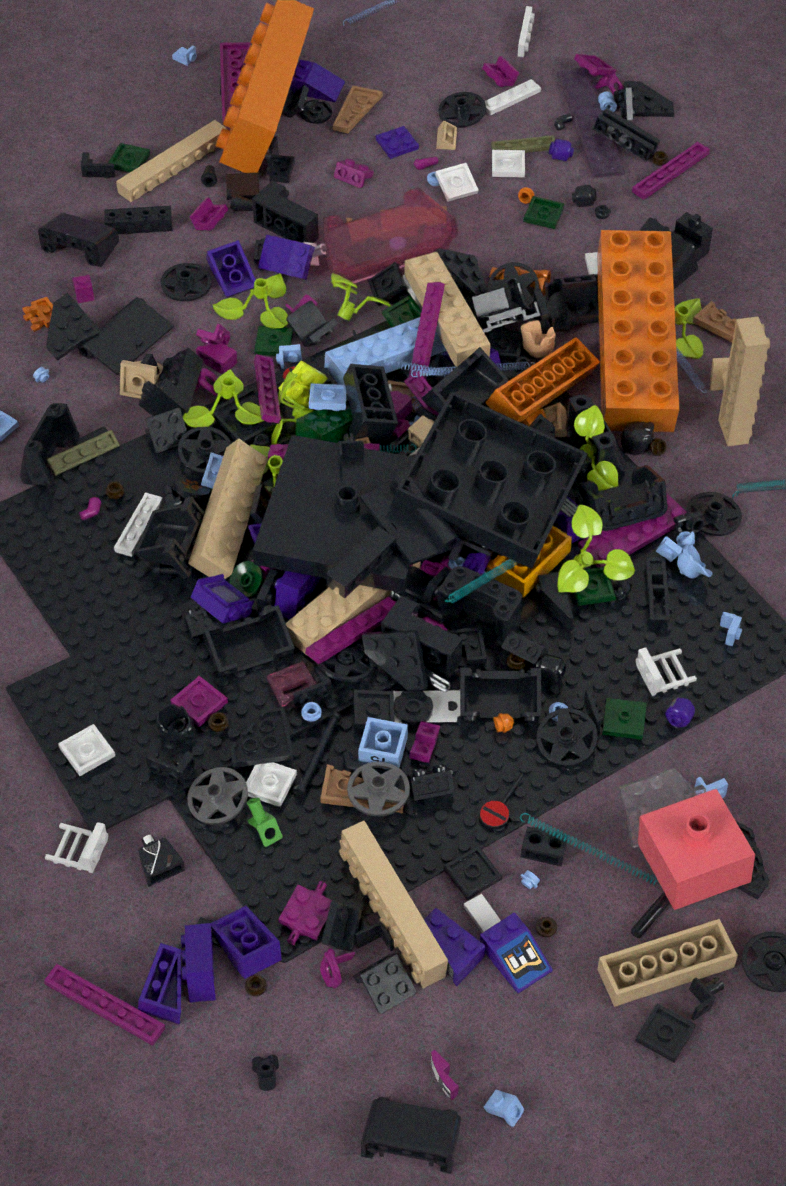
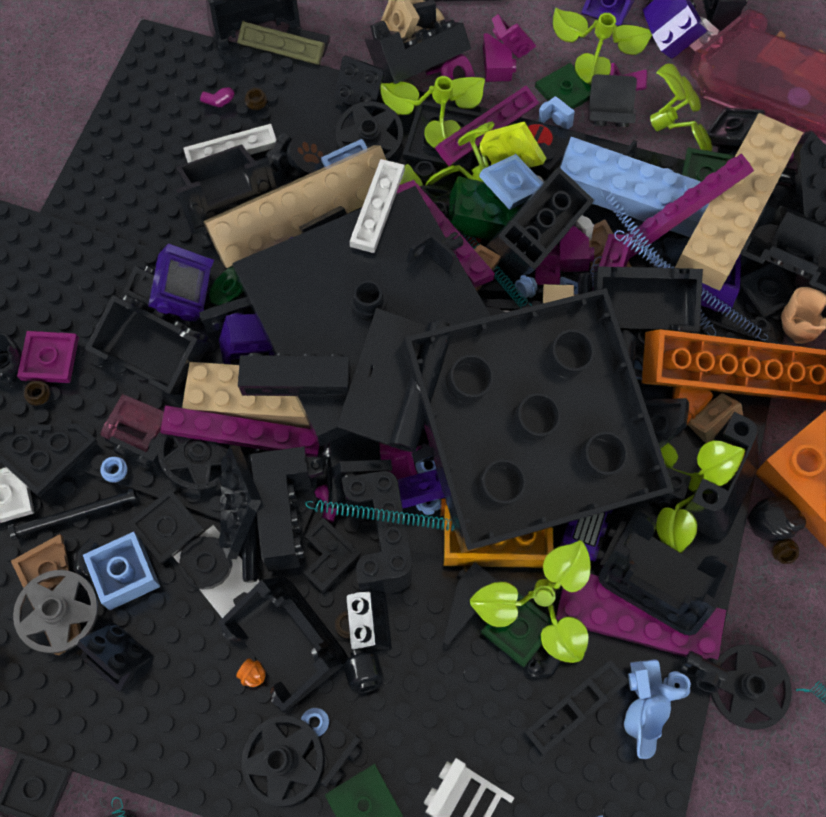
camera: 50 degrees right, 15 degrees up
(290, 457) = (377, 206): none -> white plate
(395, 439) = (527, 286): none -> light blue plate
(424, 742) = (167, 609): magenta slope -> none
(496, 812) = (129, 754): piece -> none

